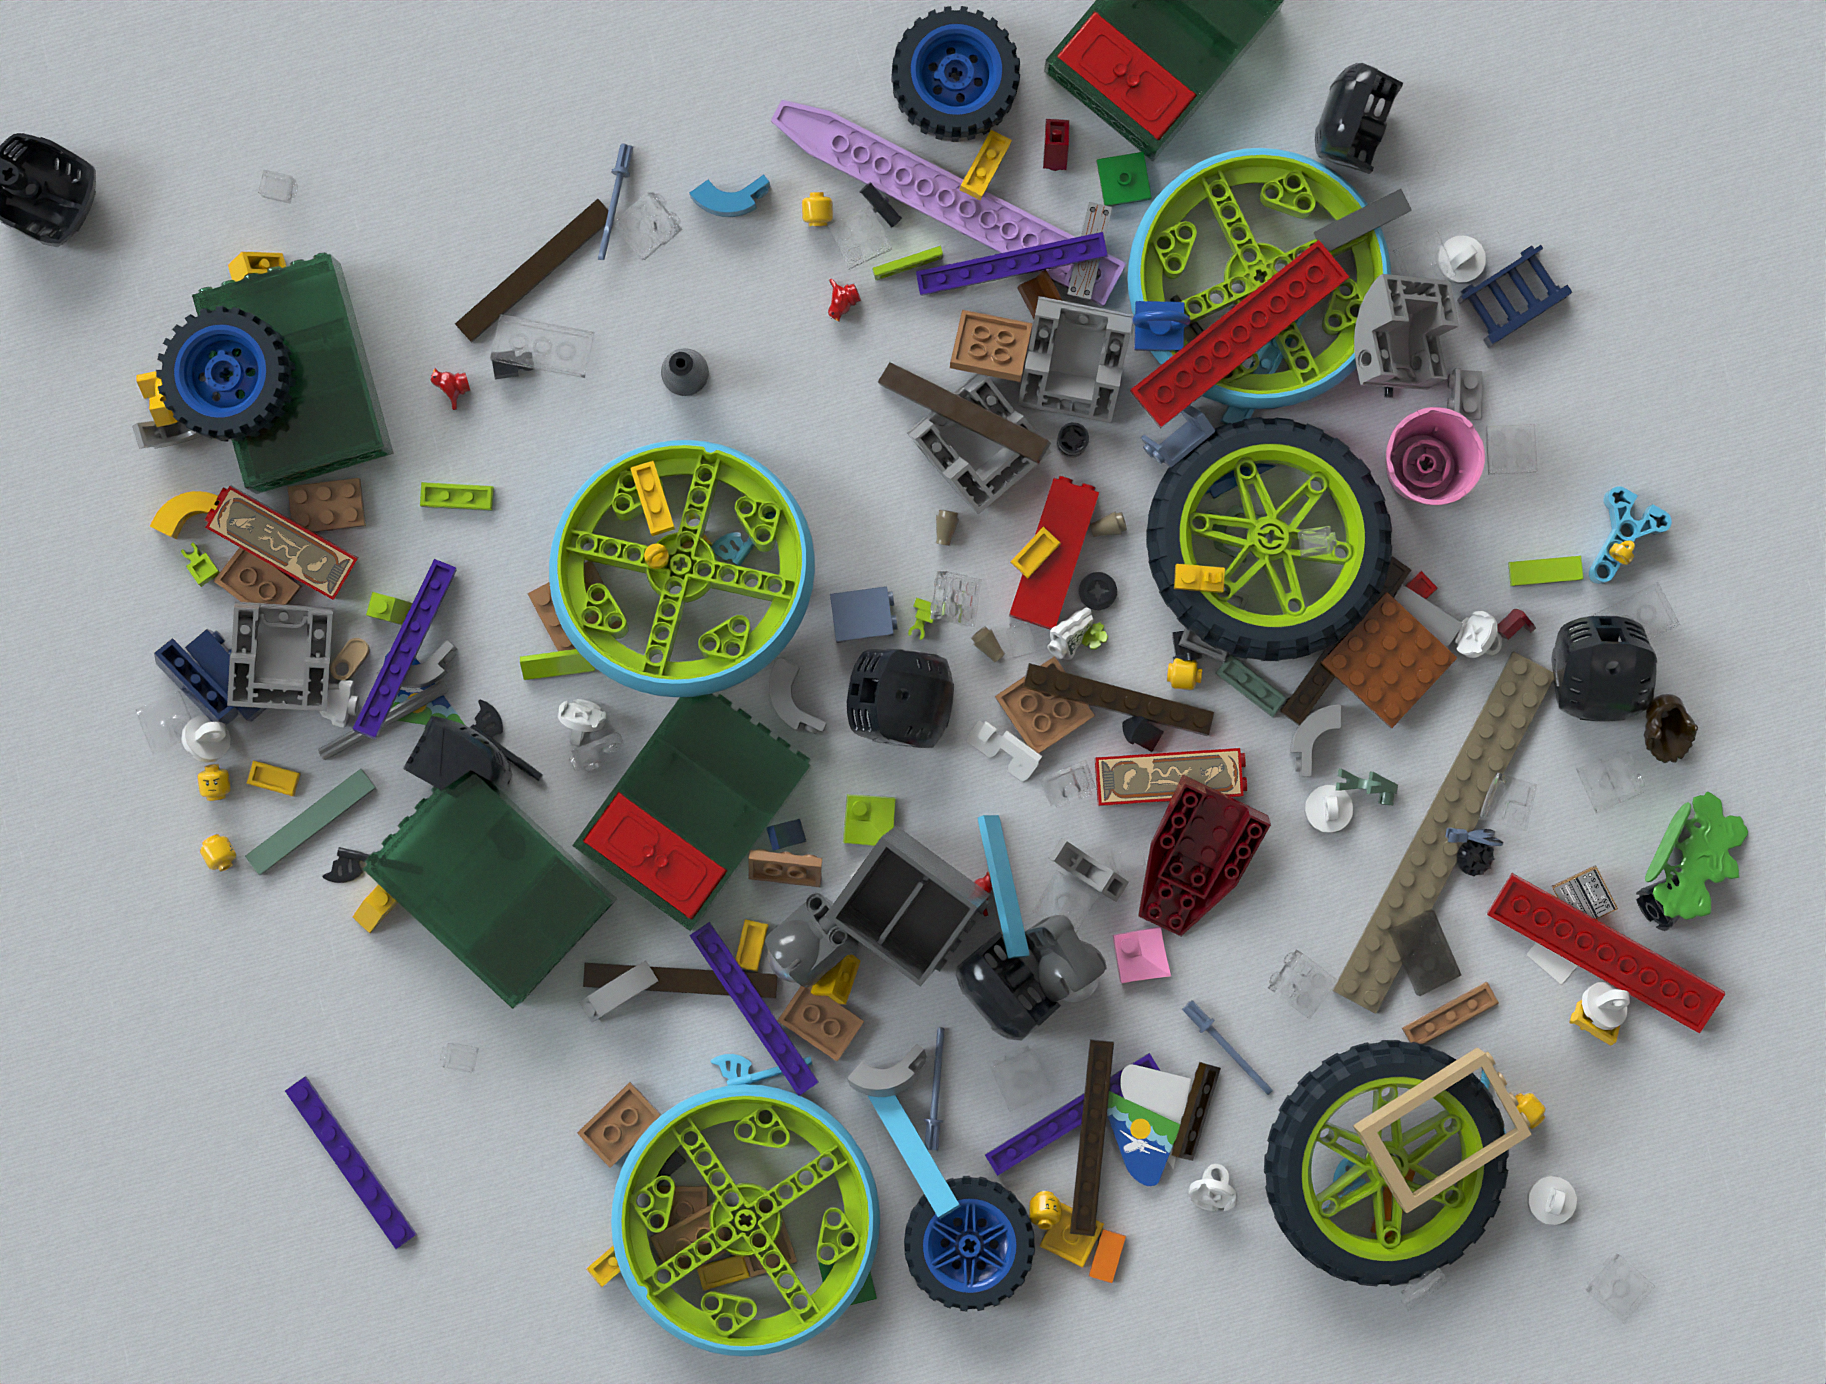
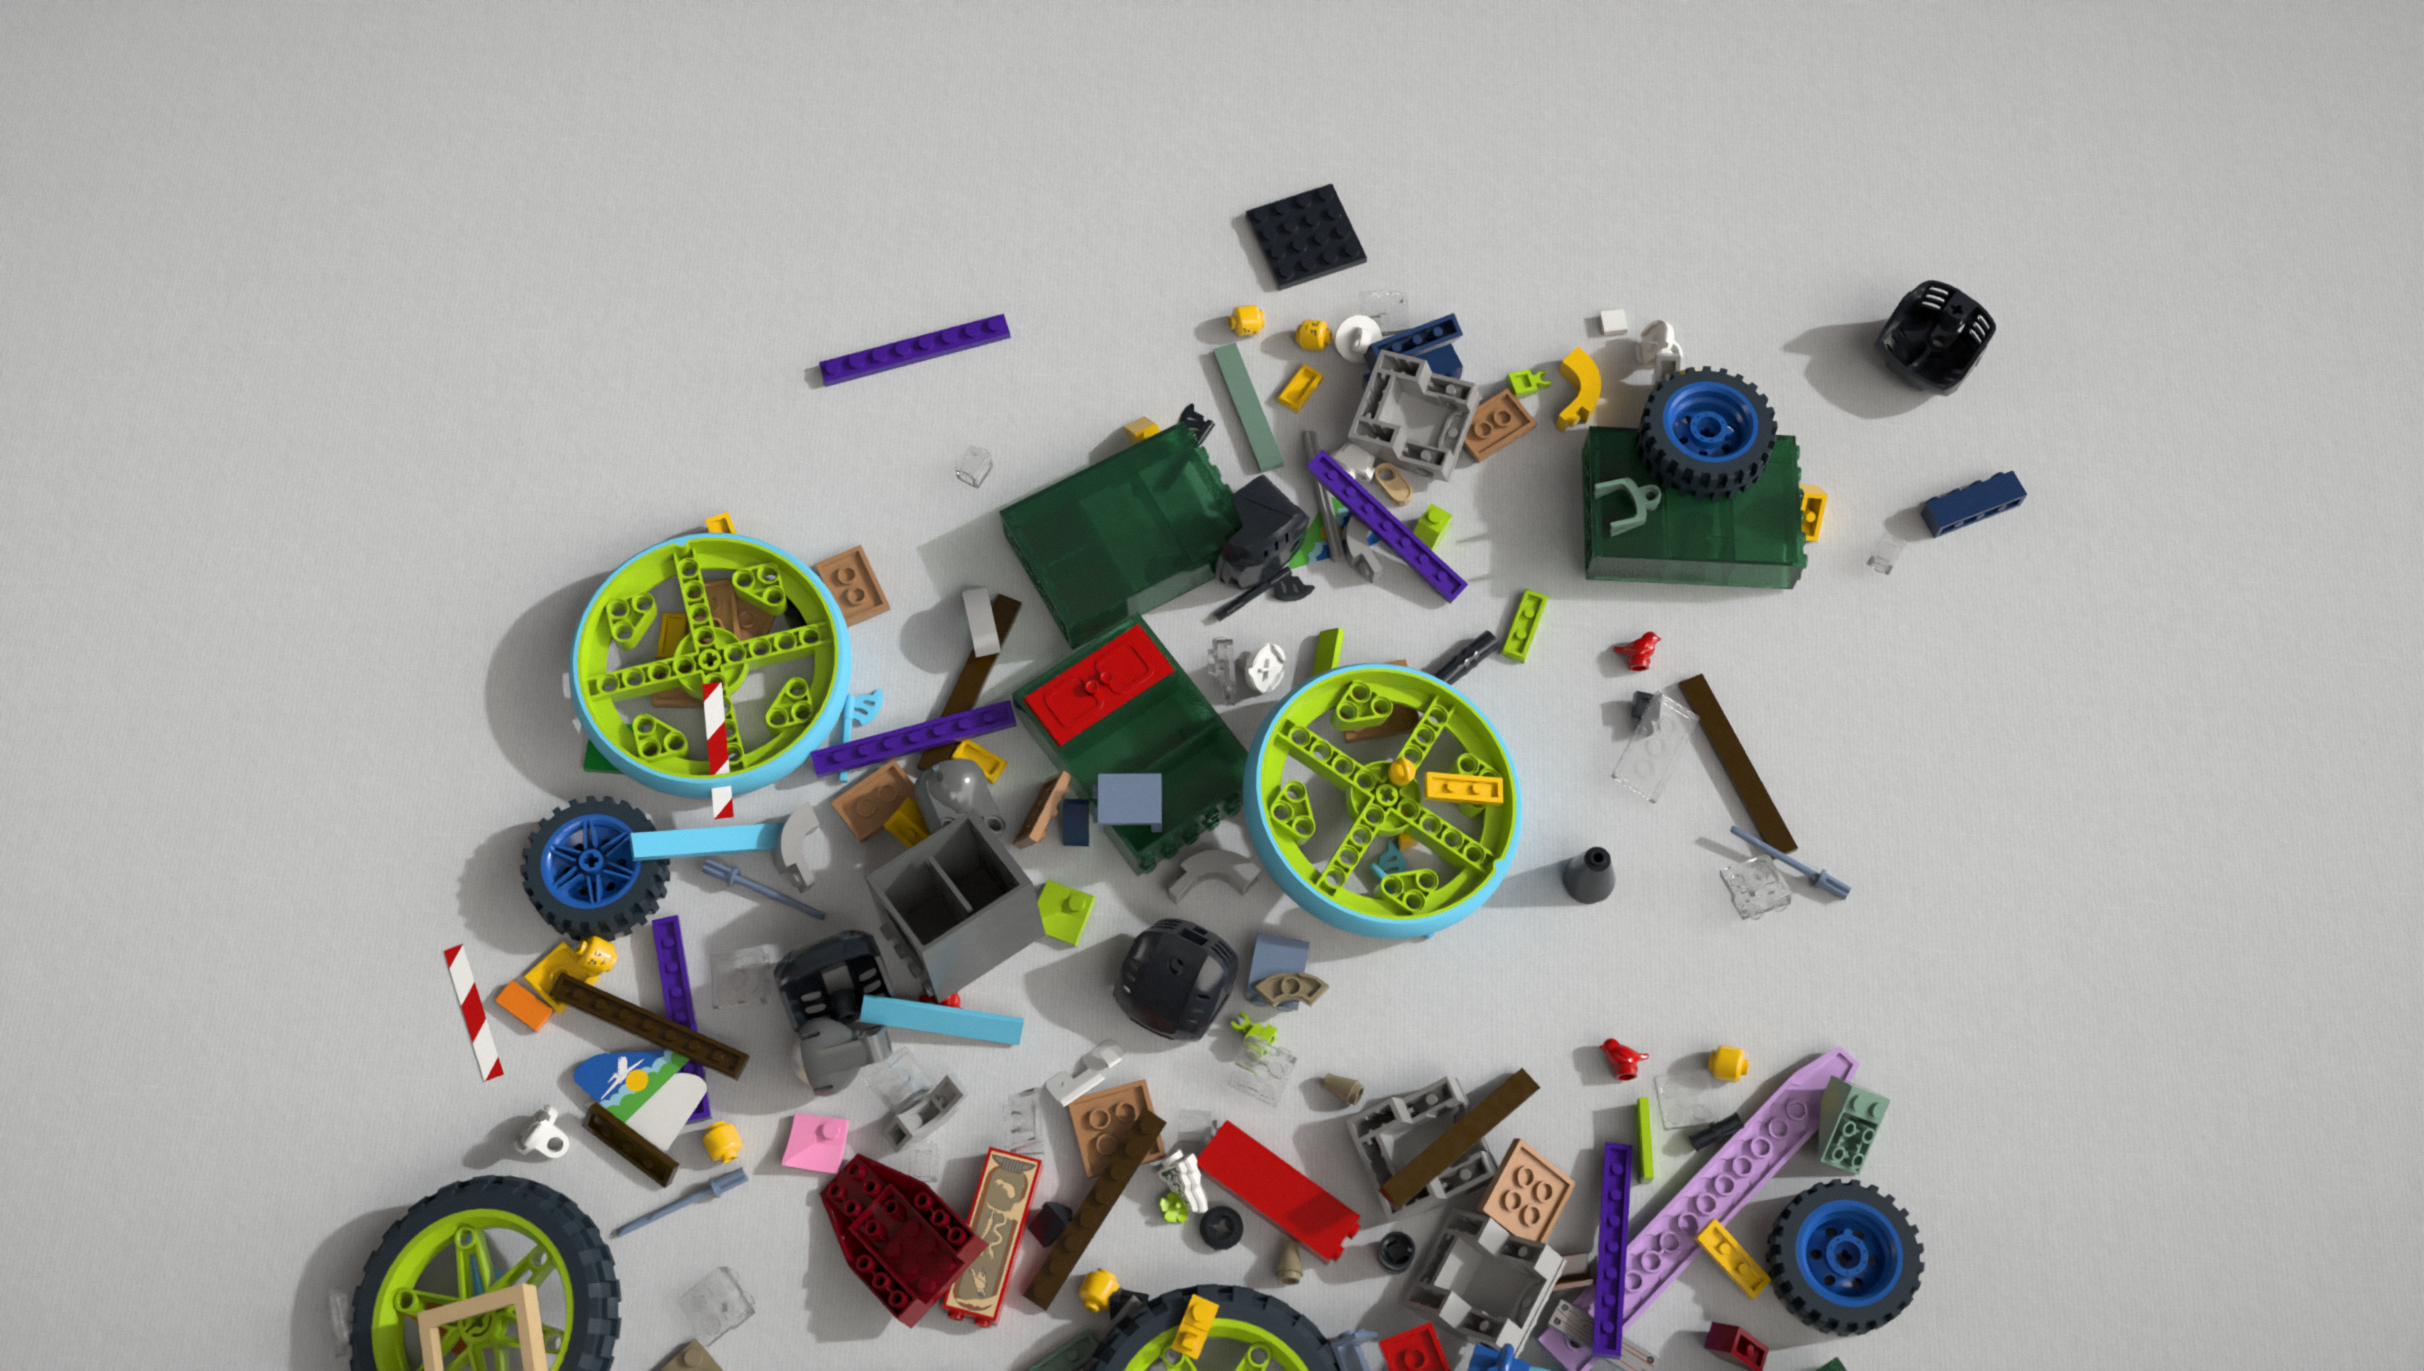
camera: 105 degrees right, 20 degrees down
(101, 827) = (1305, 236): none -> black plate
(104, 502) = (1613, 322): none -> white tile
(121, 452) = (1657, 338): none -> white tile
(199, 118) = (1973, 503): none -> dark blue brick
(280, 541) = (1526, 451): brick -> none
(314, 419) = (1639, 497): none -> sand green piece
(328, 505) = (1550, 508): medium nougat plate -> none
(512, 540) = (1467, 658): none -> black axle
(729, 203) = (1756, 979): dark azure arch -> none
(764, 788) = (1128, 800): none -> sand blue panel
(826, 1178) = (717, 747): none -> sticker
(838, 96) = (1848, 1123): none -> sand green slope
(876, 597) = (1291, 986): none -> dark tan tile
(988, 644) = (1203, 1091): dark tan cone -> none
(1035, 552) = (1284, 1167): yellow tile -> none
(1125, 1299) = (473, 1012): none -> sticker
(1168, 1034) = (722, 1142): none -> yellow head

